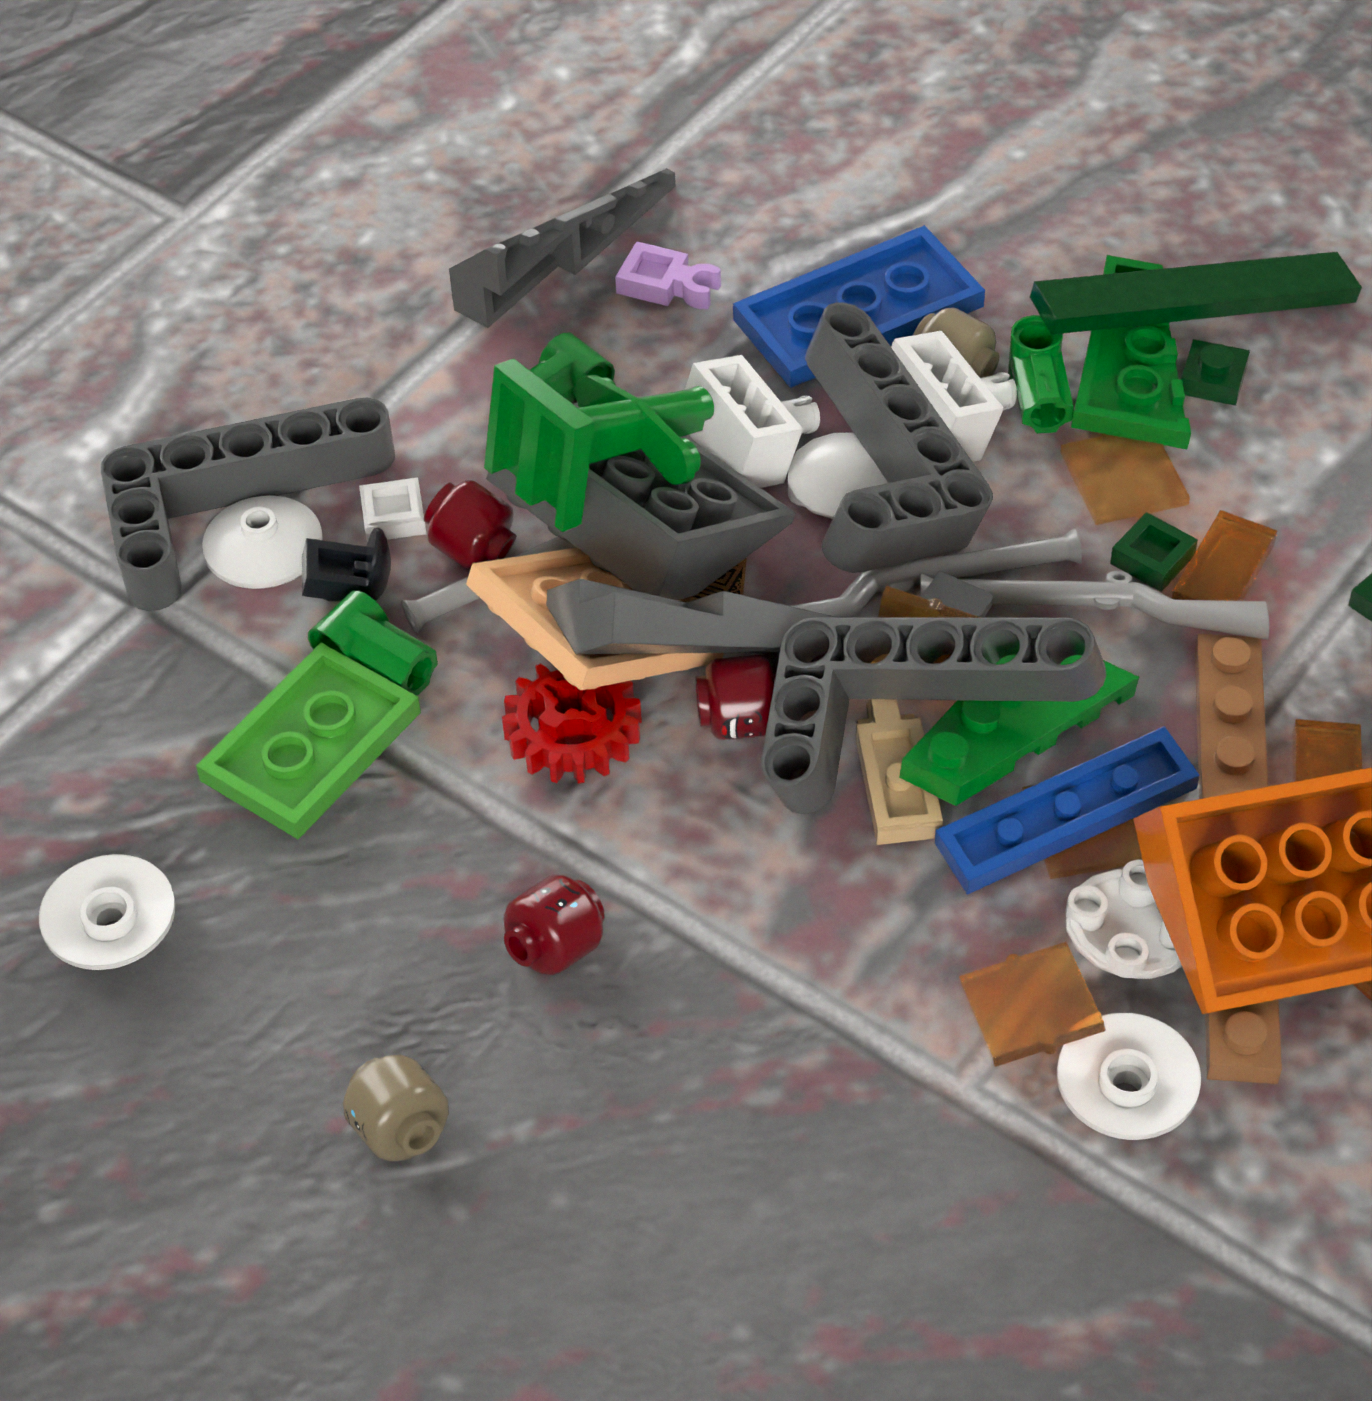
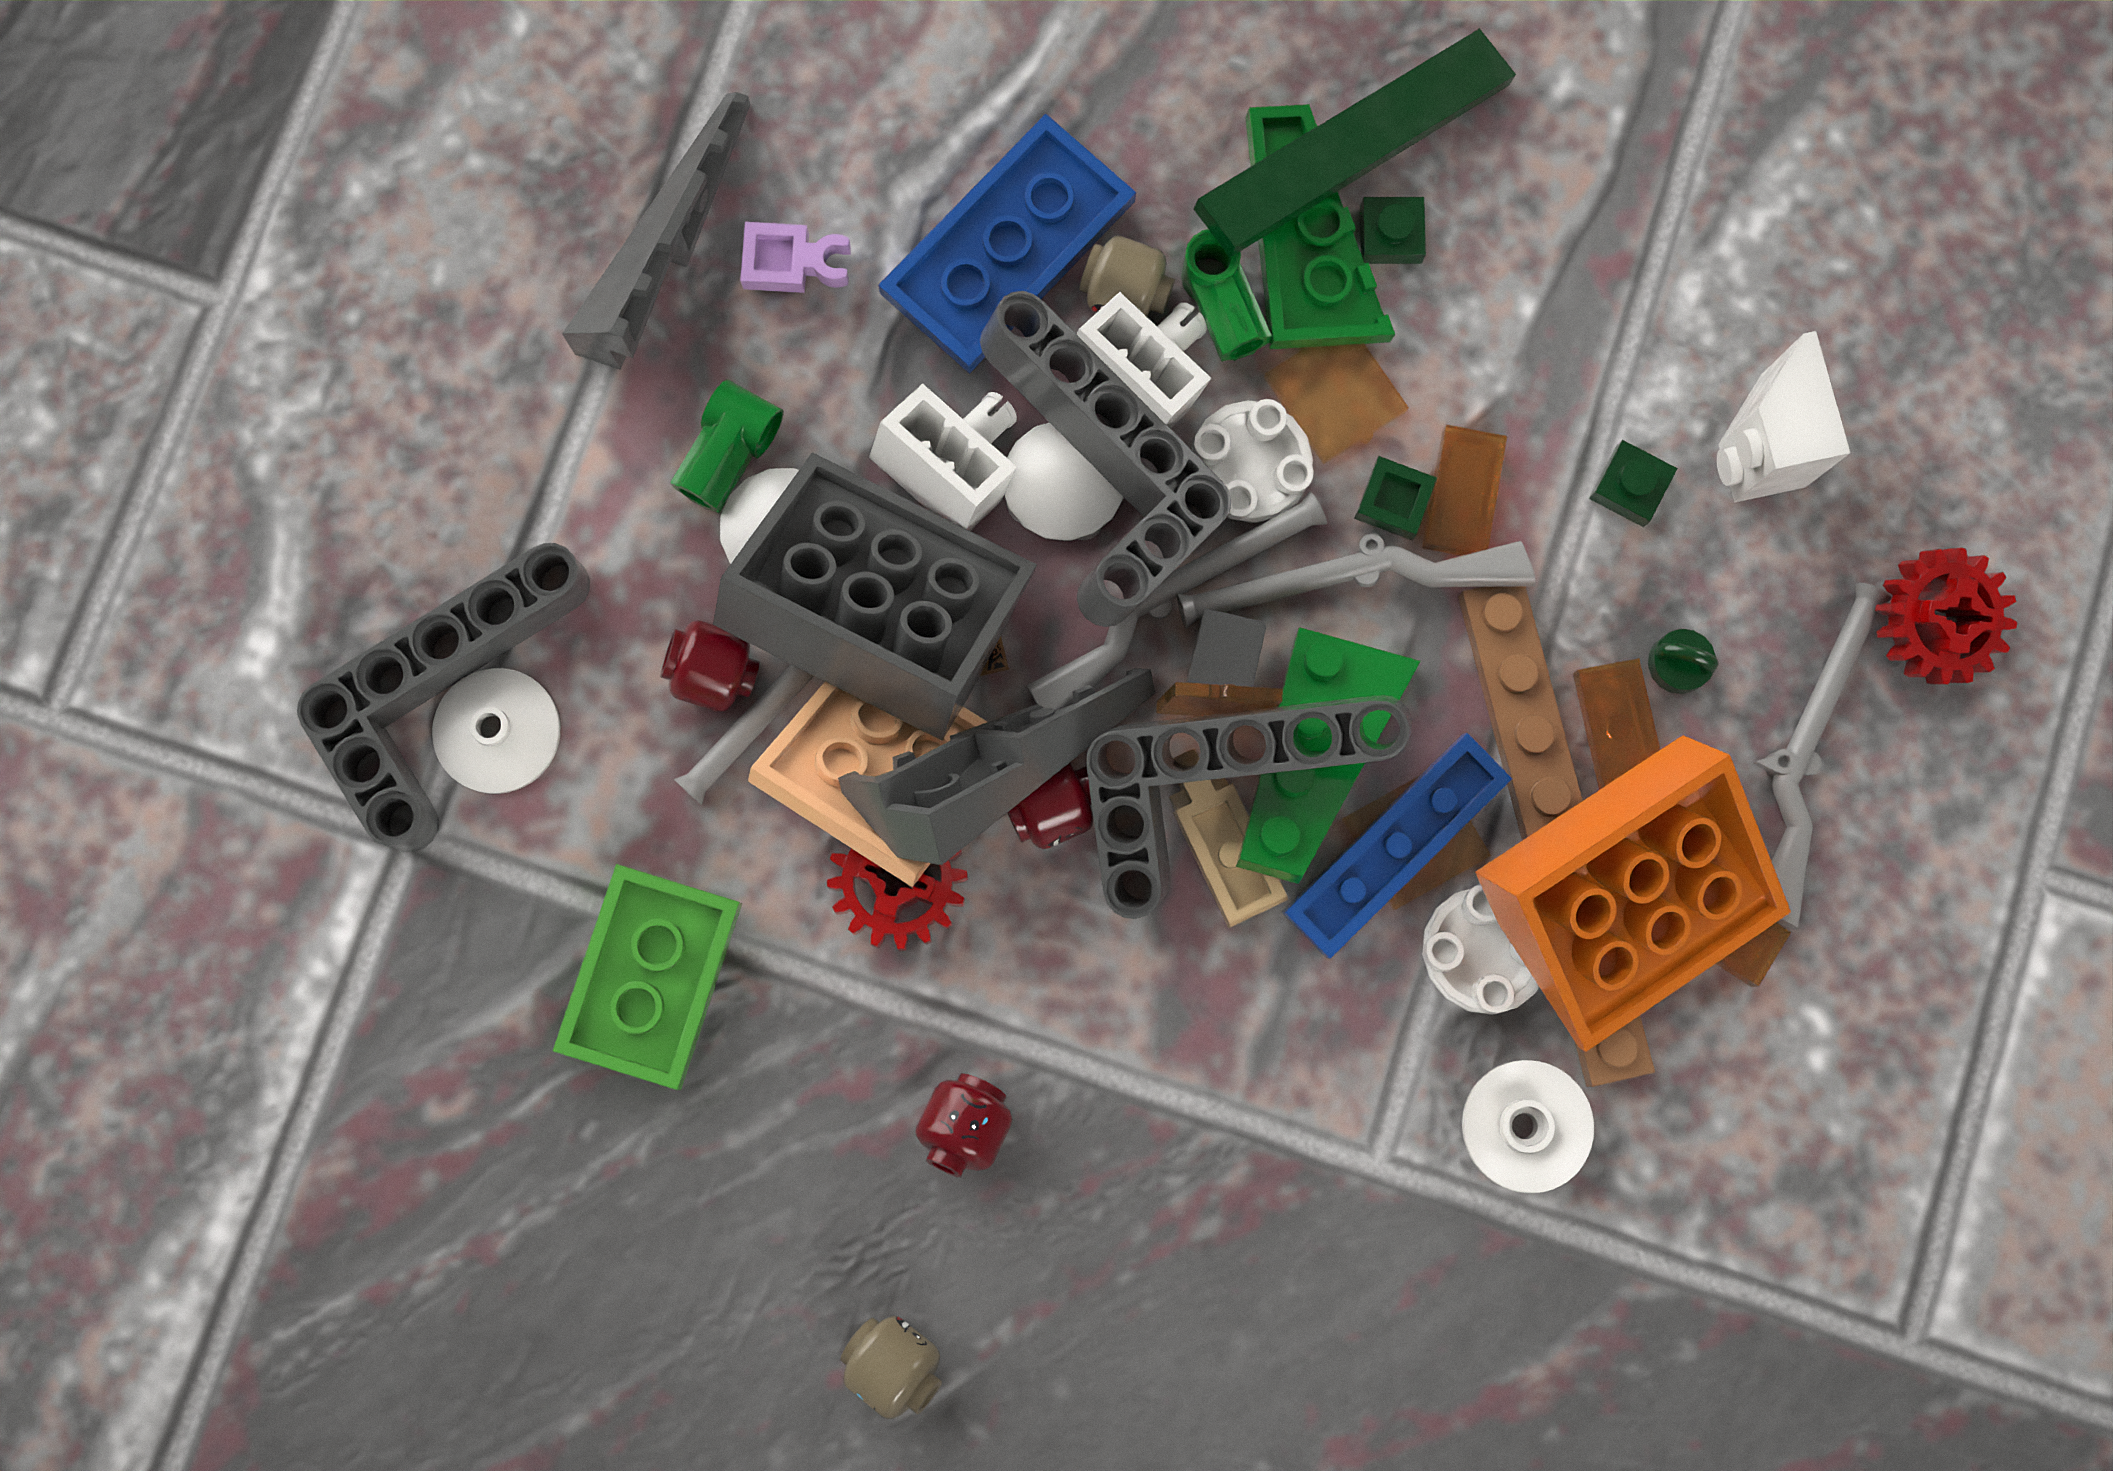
camera: 25 degrees left, 30 degrees up
(102, 892) = (503, 1246): white dish -> none
(337, 568) = (600, 760): black plate -> none
(365, 635) = (652, 841): green piece -> none
(393, 508) = (616, 654): white tile -> none
(553, 442) = (794, 624): green piece -> none
(1031, 496) = (1257, 456): none -> white dish
(1031, 1004) = (1421, 1072): clear orange piece -> none

